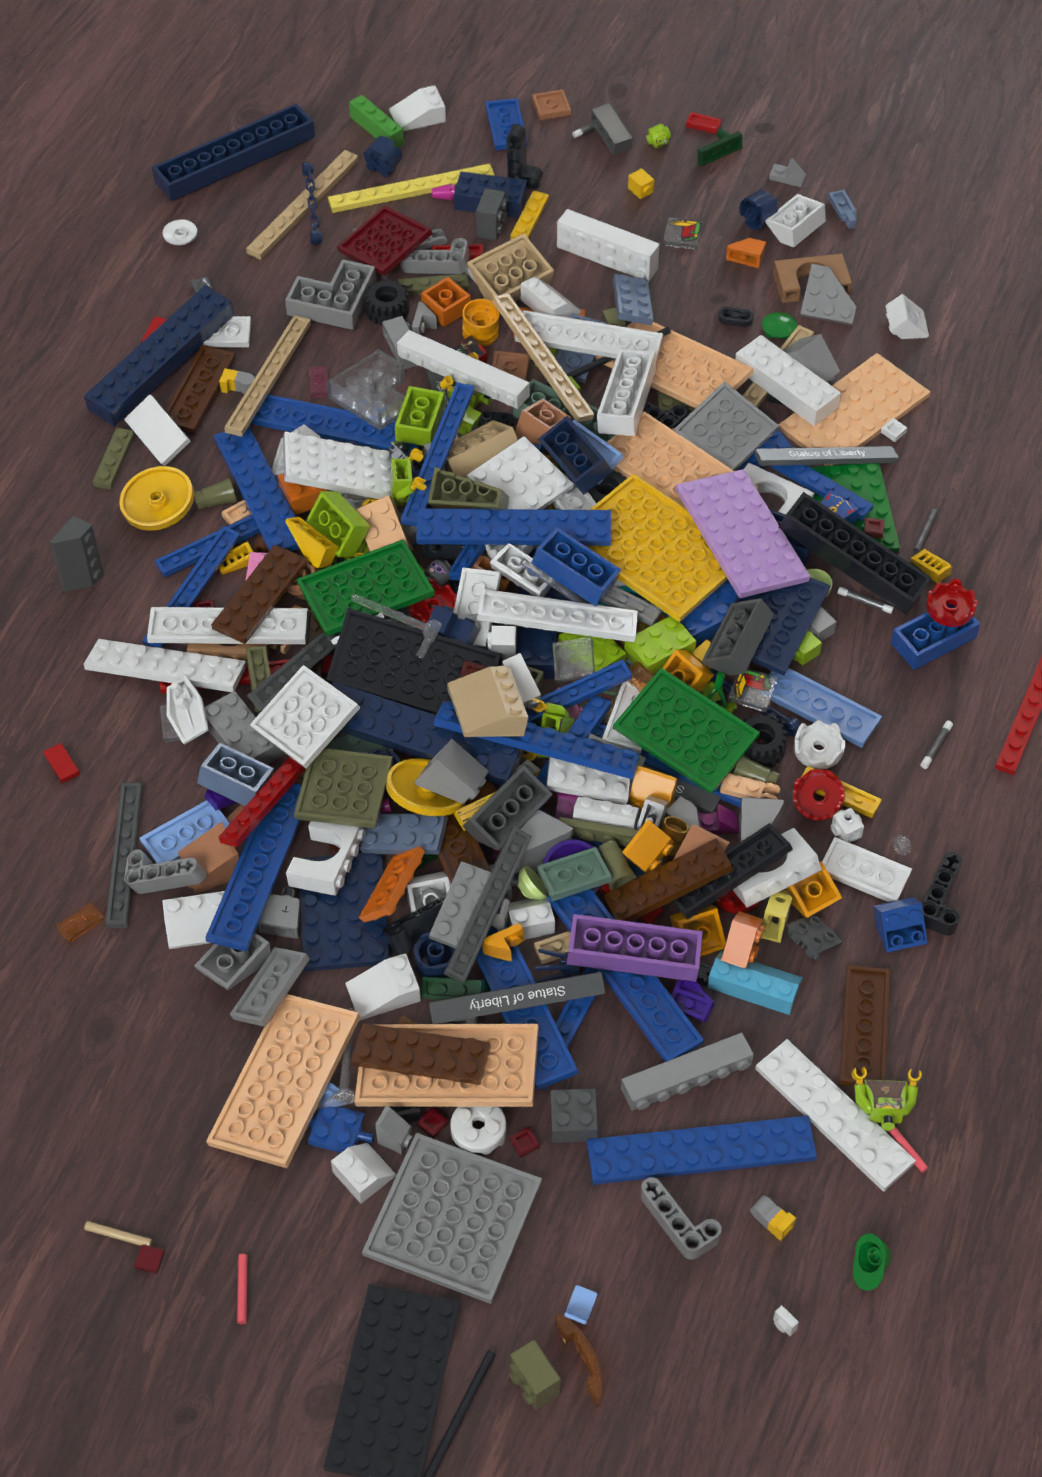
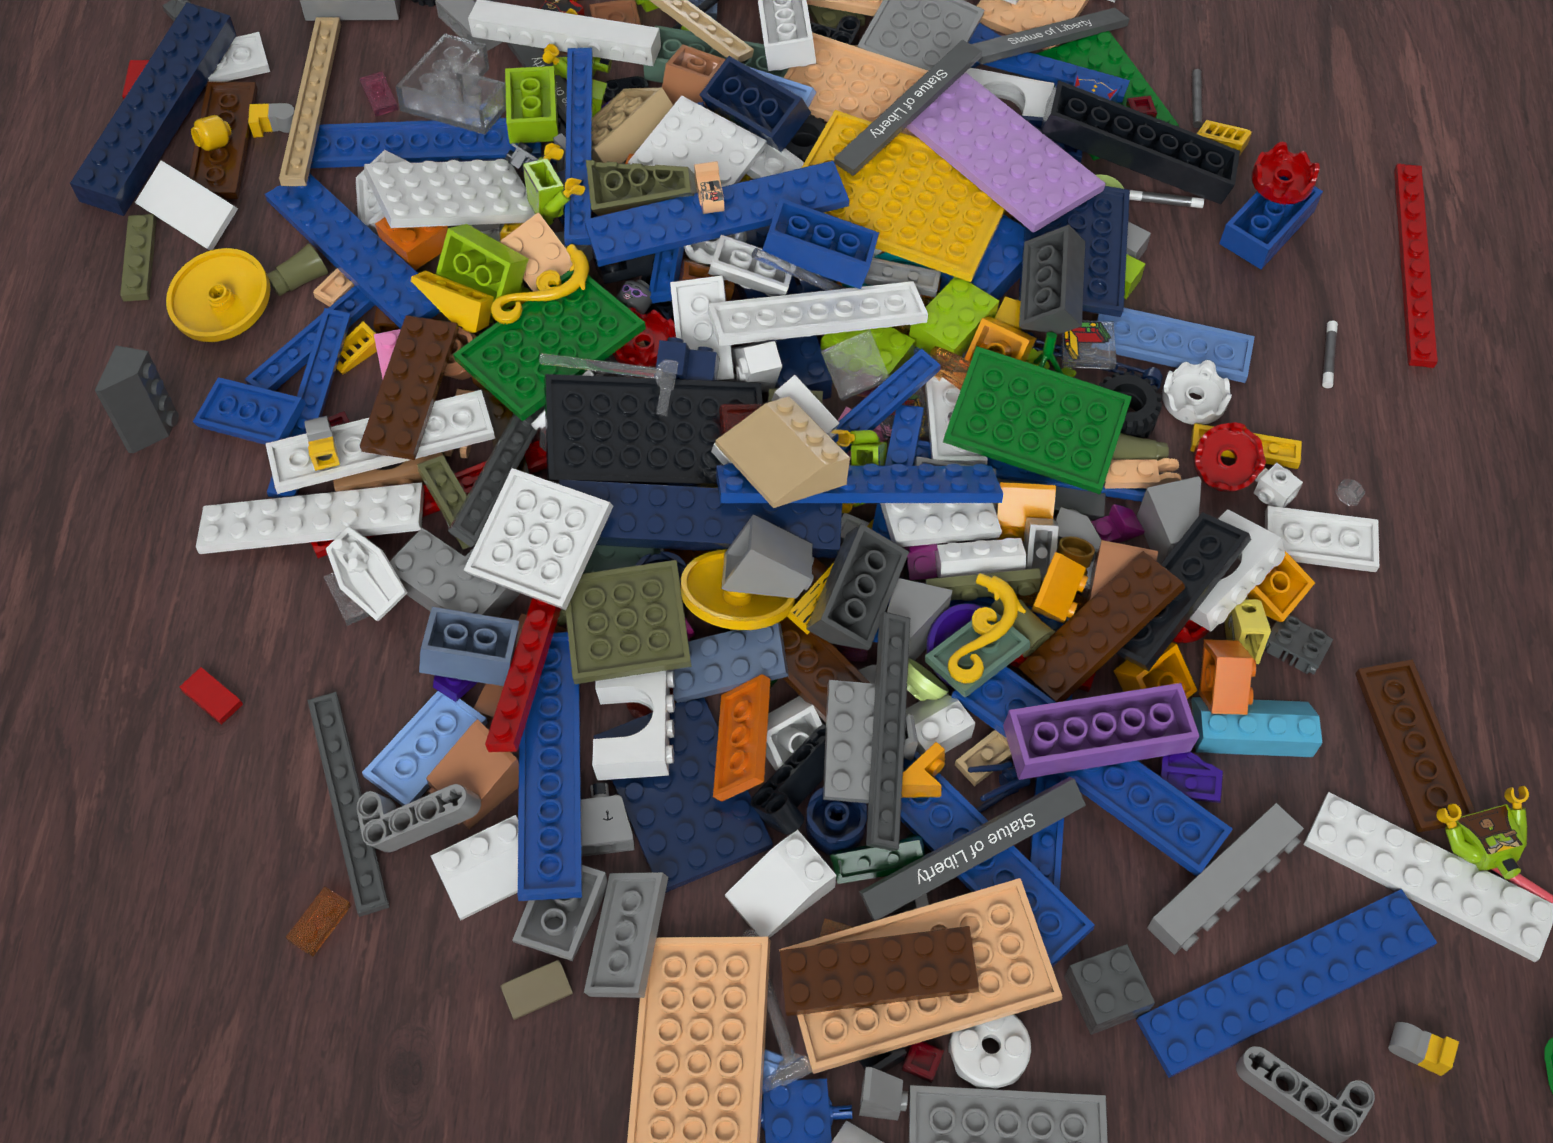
camera: 20 degrees left, 5 degrees up
(149, 583) = (249, 412): none -> blue plate
(186, 615) = (321, 443): none -> leg
(190, 382) = (211, 132): none -> yellow head
(200, 1003) = (536, 989): none -> dark tan slope
(374, 552) = (545, 292): none -> yellow plant
(511, 507) = (709, 187): none -> light nougat leg
(524, 1142) = (1056, 1047): dark red tile -> none
(584, 861) = (989, 632): none -> yellow plant
(684, 484) = (907, 107): none -> dark grey tile
(900, 924) = (1396, 595): blue slope -> none
(941, 890) = (1423, 548): black beam -> none

